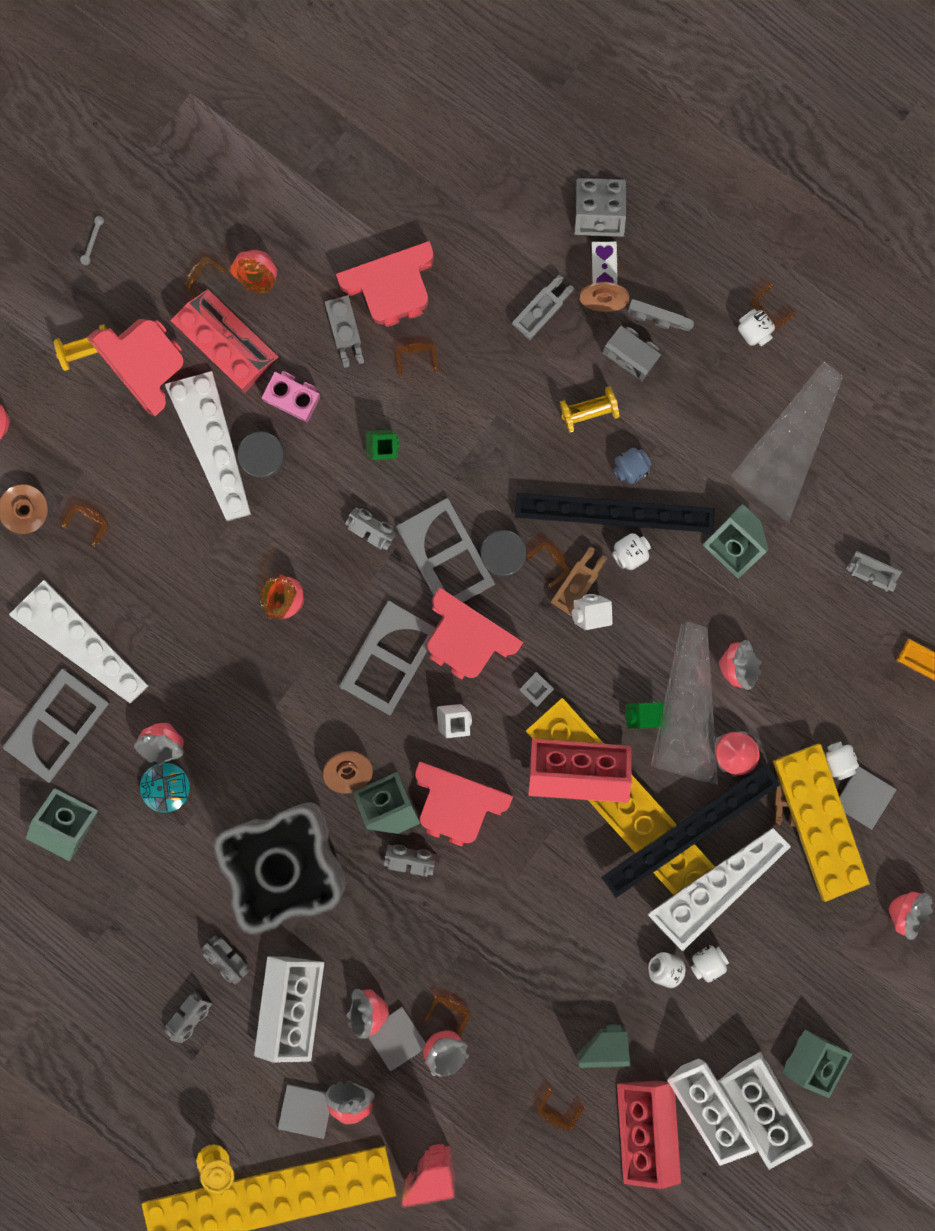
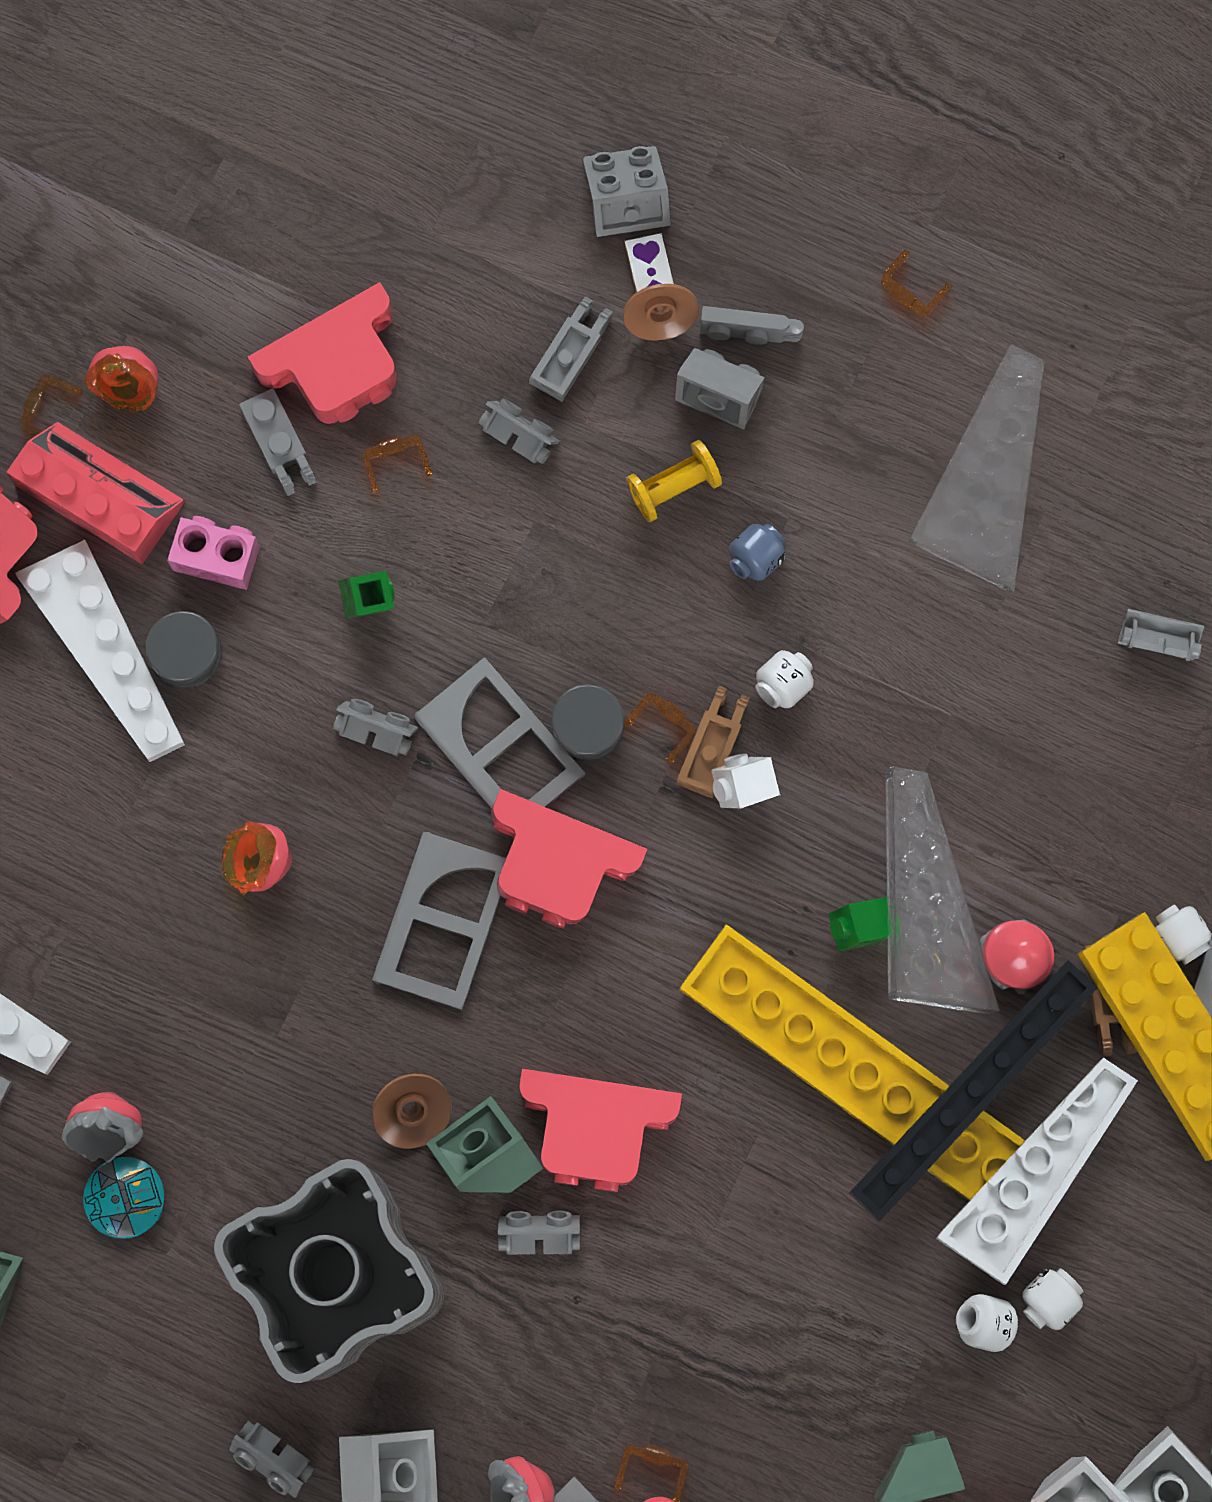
camera: 15 degrees left, 10 degrees down
(454, 721) = (563, 994): white brick -> none
(506, 359) = (532, 435): none -> light grey hinge
(536, 689) = (683, 920): light grey plate -> none
(580, 770) = (780, 1030): coral slope -> none
(614, 513) = (745, 628): black plate -> none
(738, 541) = (944, 632): sand green slope -> none
(740, 665) = (991, 817): light grey hair -> none
(756, 327) = (898, 313): white head -> none

